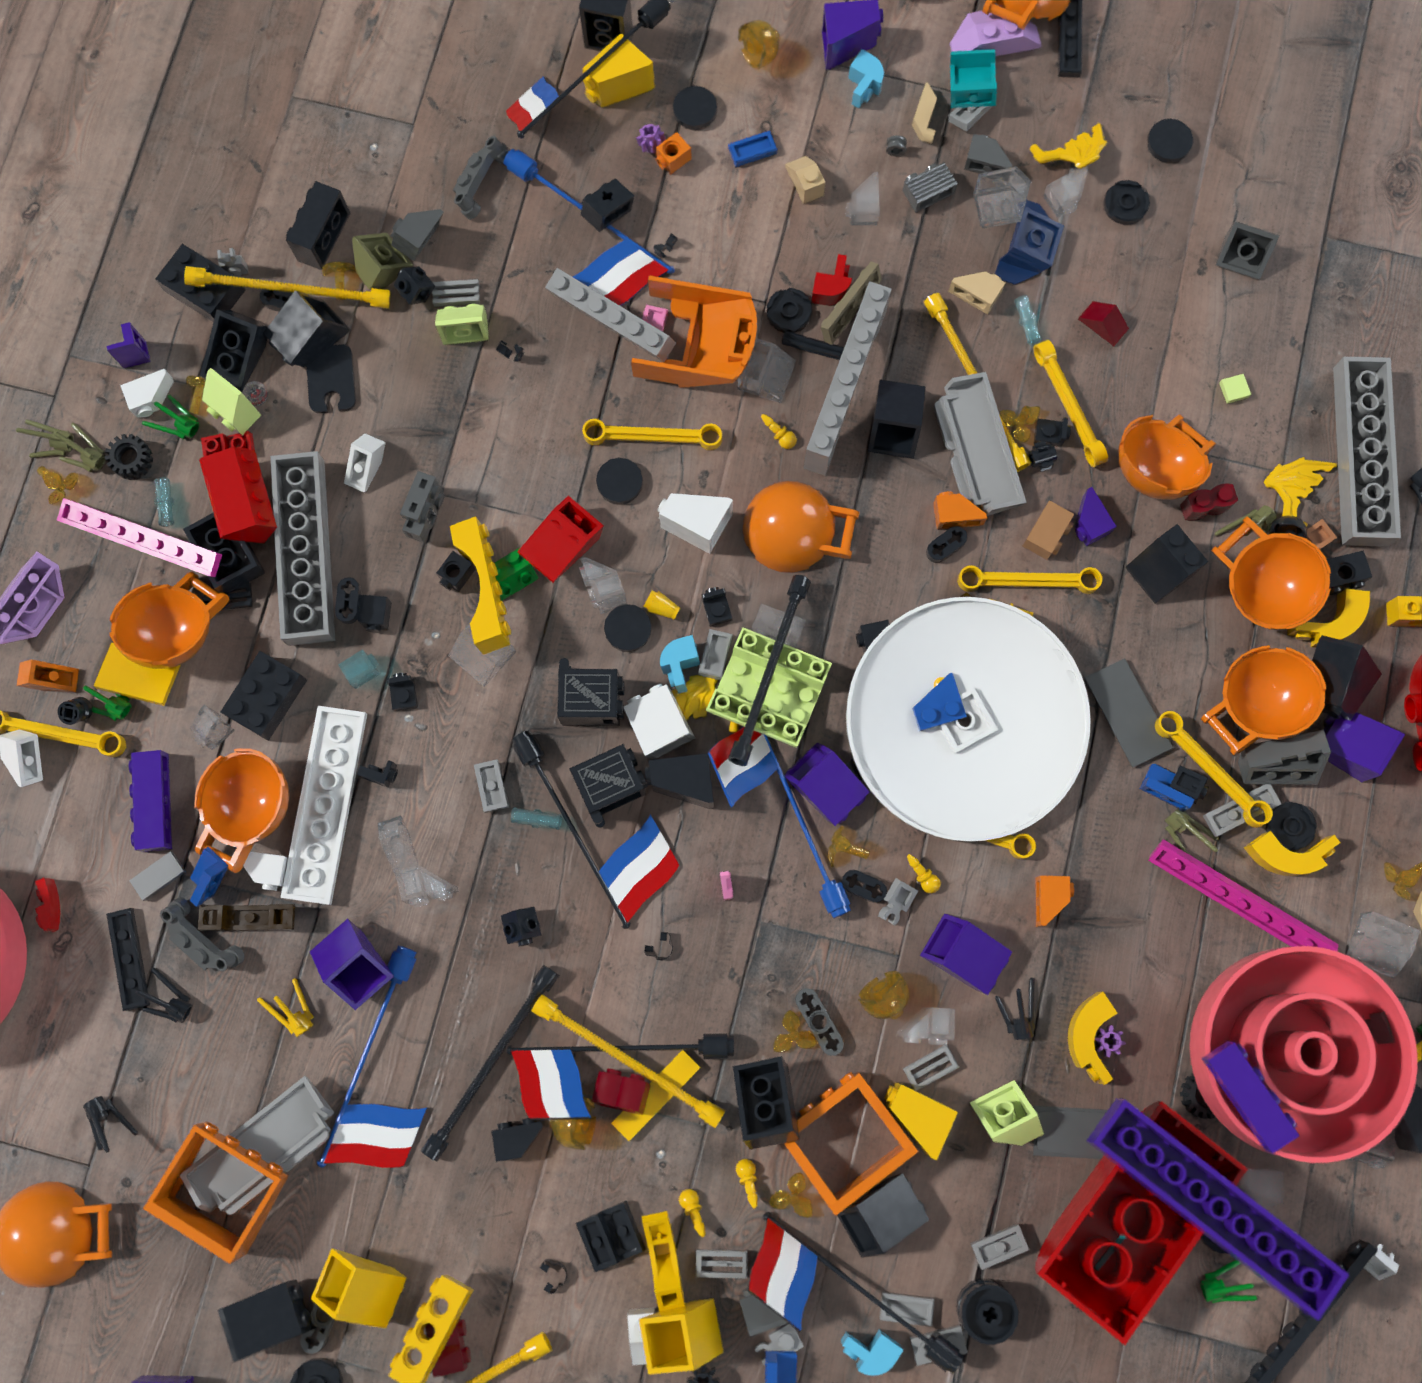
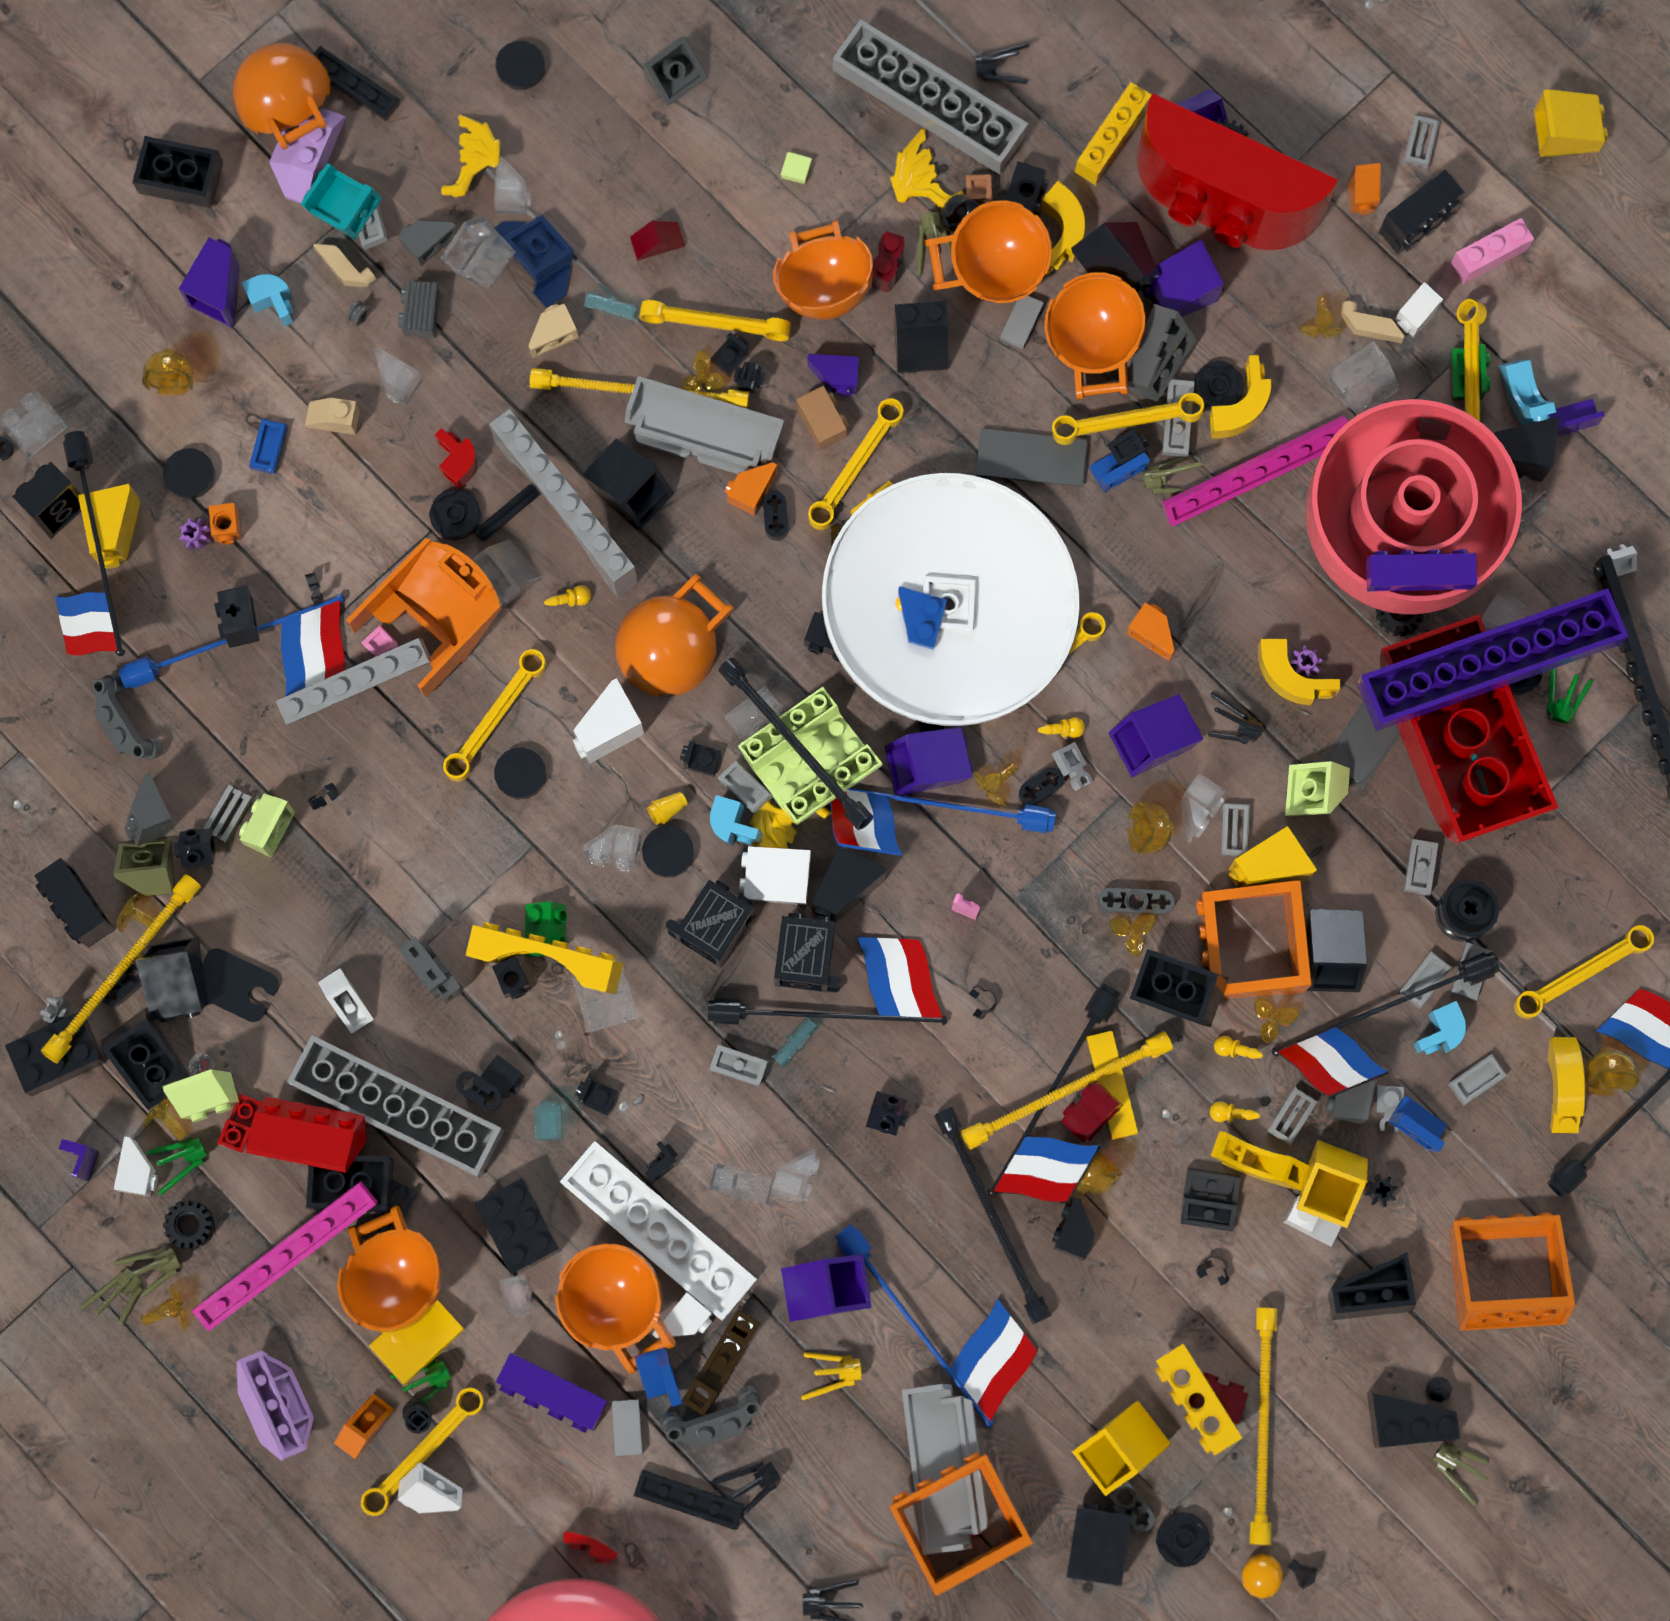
camera: 60 degrees left, 0 degrees up
(164, 502) = (258, 1216): clear light blue pin -> none
(561, 539) = (547, 859): red slope -> none
(849, 304) = (486, 447): dark tan plate -> none
(1126, 202) = (554, 143): black tile -> none
(1234, 636) = (1021, 321): none -> light grey tile

